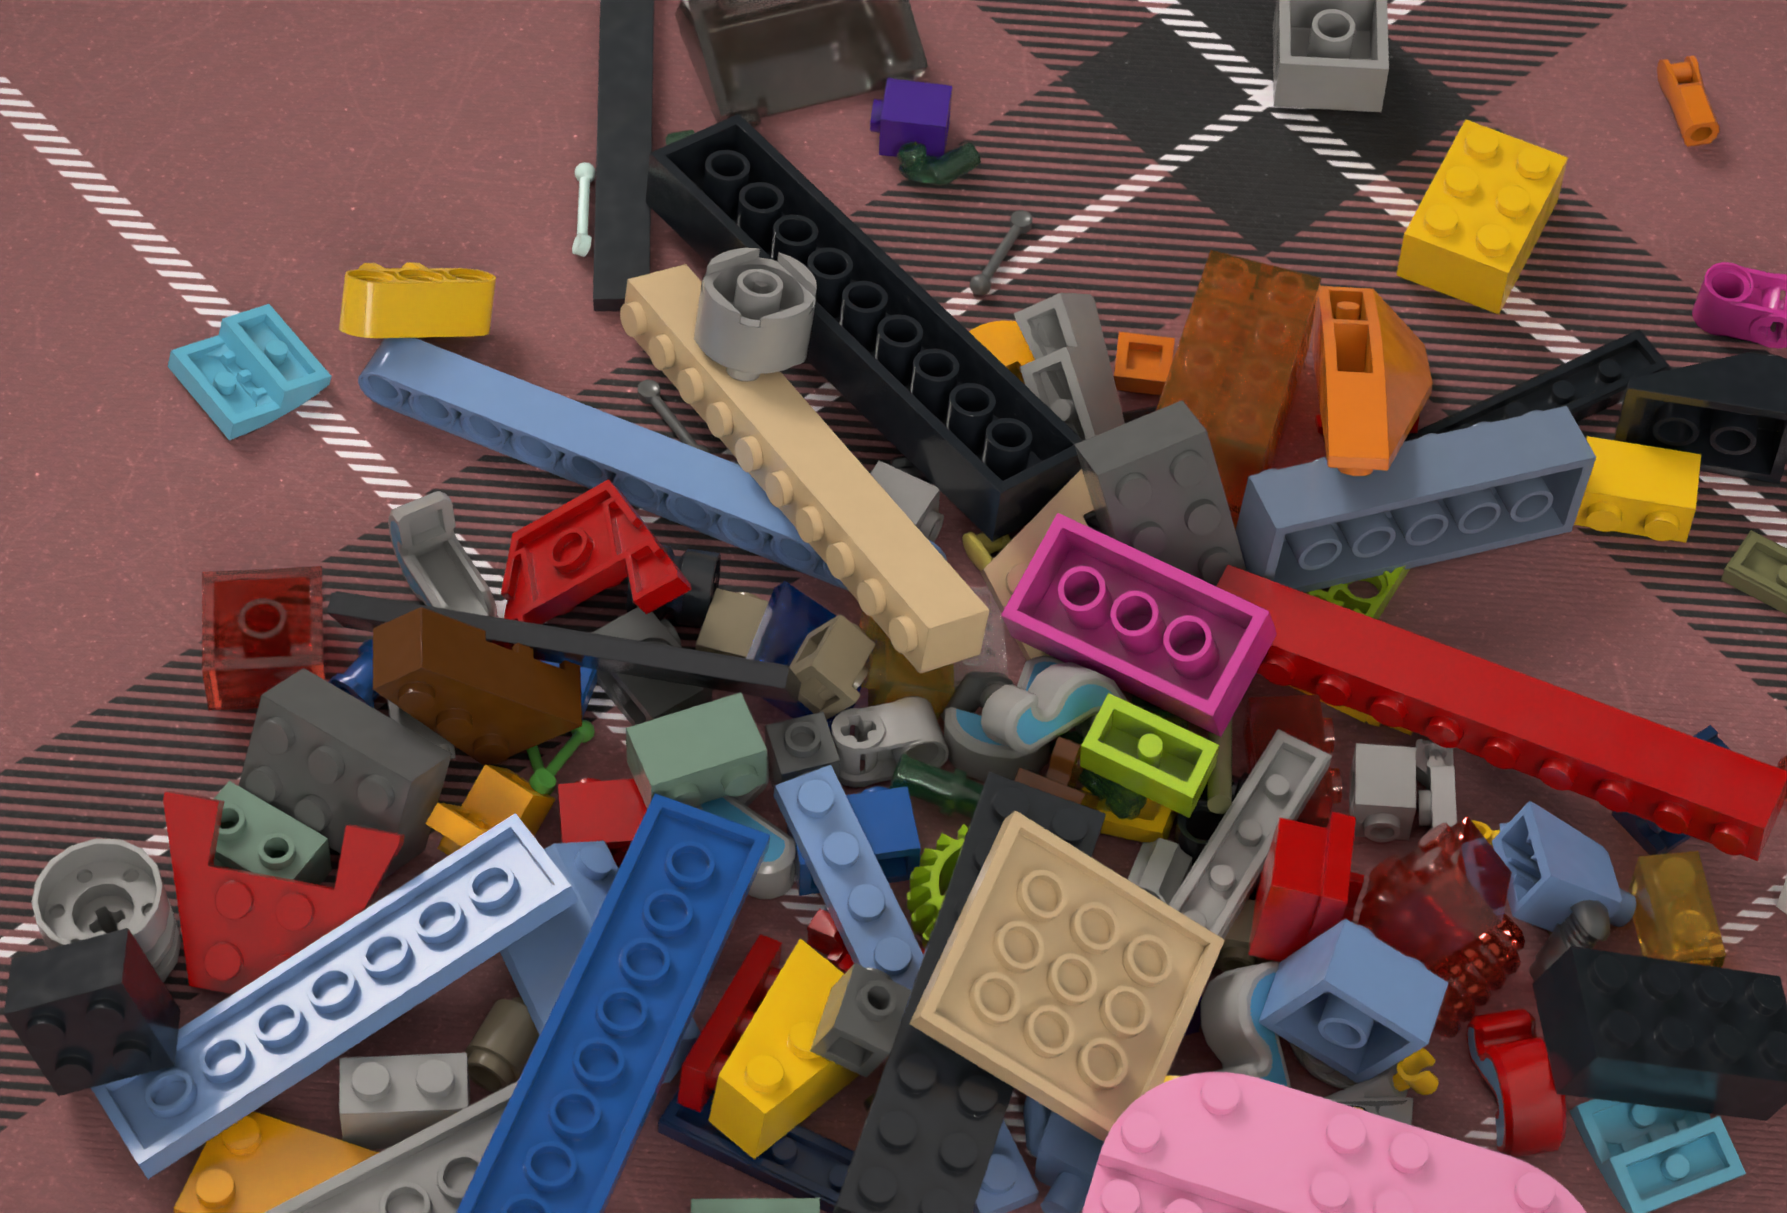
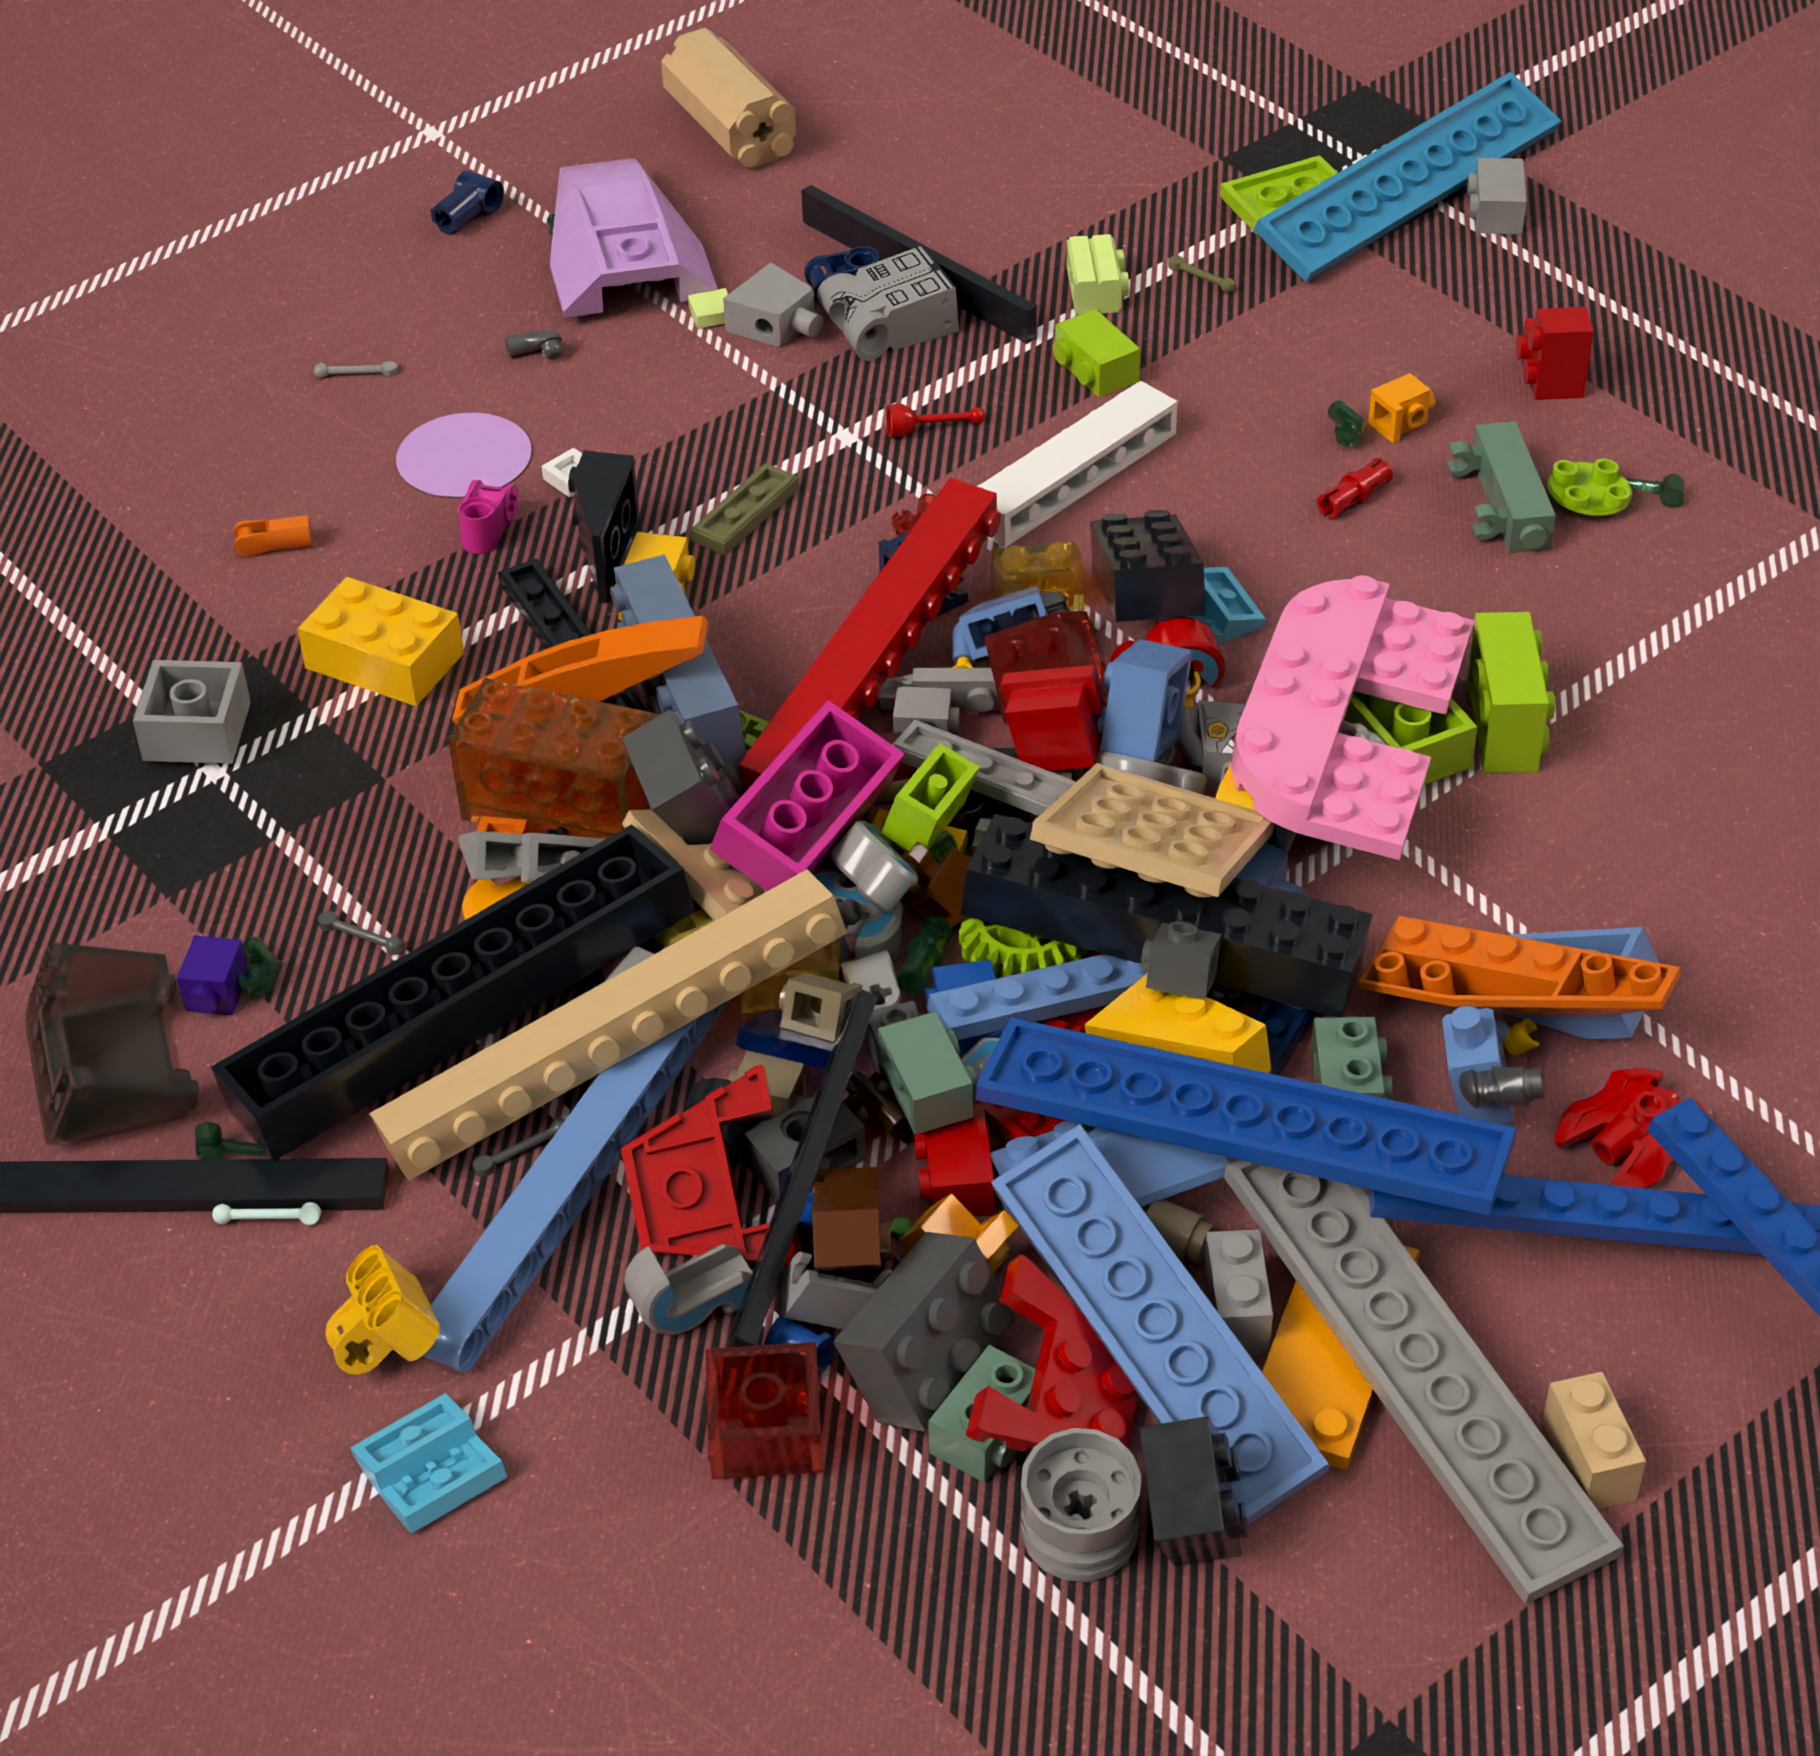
camera: 85 degrees left, 10 degrees down
(544, 778) = (920, 1202): bright green hinge -> none
(755, 312) = (470, 1027): light grey brick -> none

